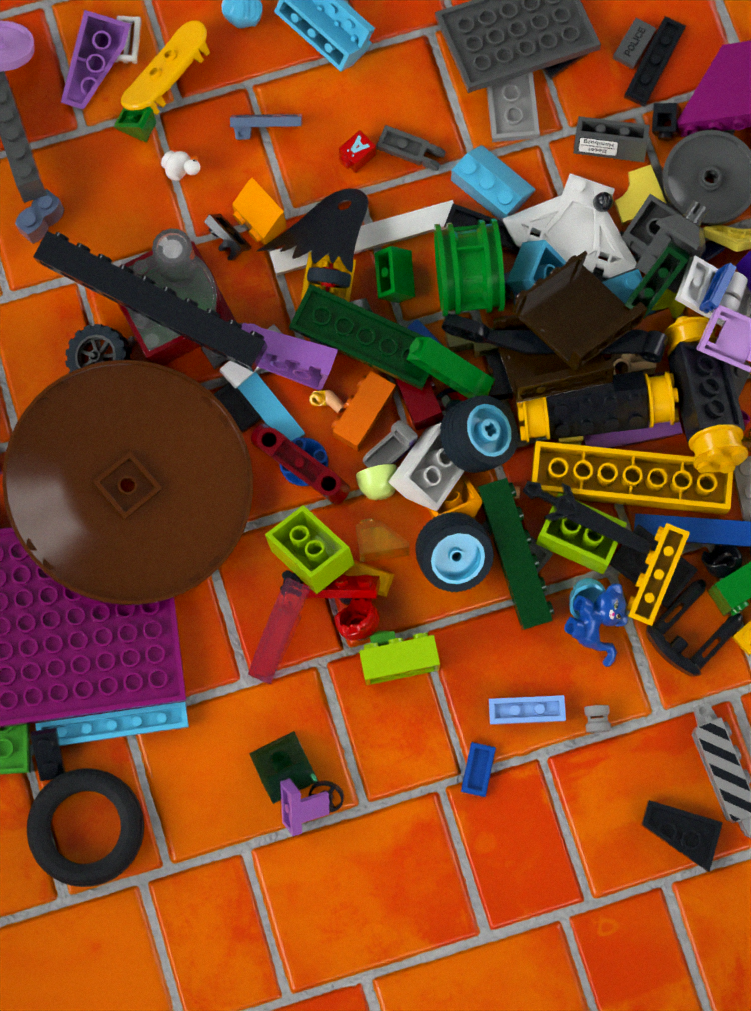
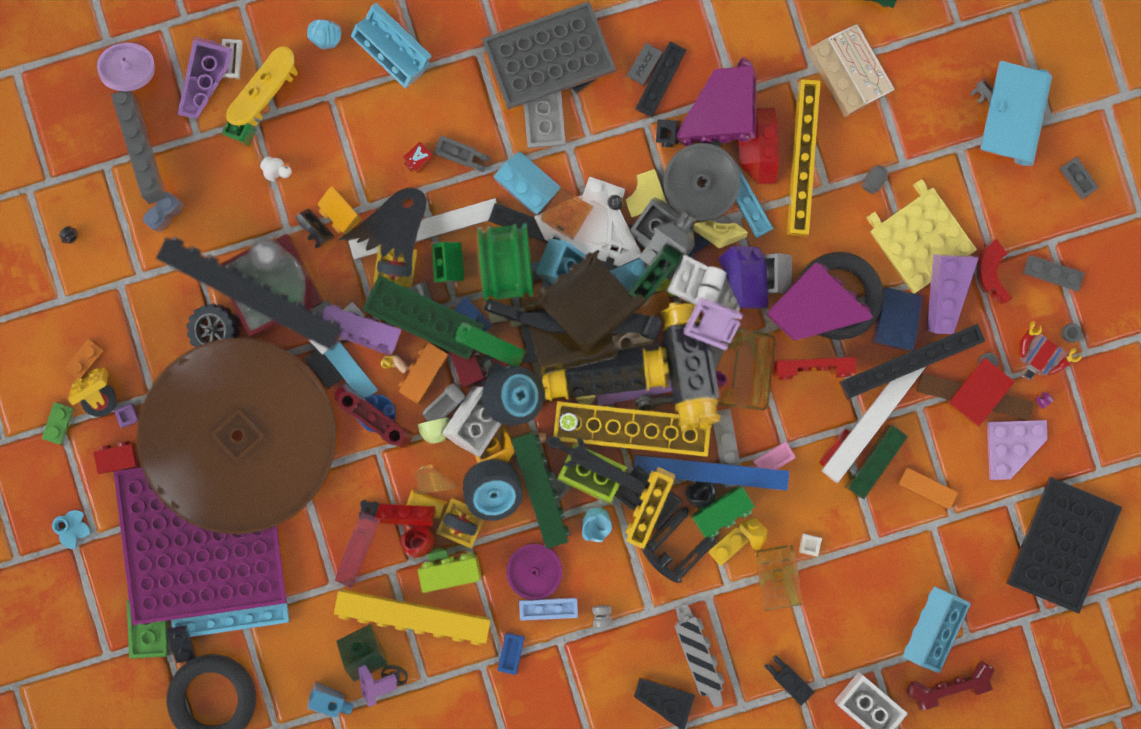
camera: 10 degrees left, 10 degrees up
(230, 823) = (320, 700): none -> dark azure torso
(244, 123) = (327, 132): sand blue hinge -> none
(310, 549) = (380, 487): lime brick -> none
(349, 718) = (412, 616): none -> yellow brick
(412, 599) = (460, 524): none -> yellow plate
(507, 662) = (534, 571): none -> magenta piece
(543, 214) = (566, 213): none -> clear orange plate
(551, 464) = (568, 421): none -> tile
(607, 610) = (610, 535): blue animal -> none
(611, 139) = (622, 149): dark grey brick -> none
(650, 444) = (647, 402): none -> dark grey plate
(717, 288) = (701, 283): blue tile -> none

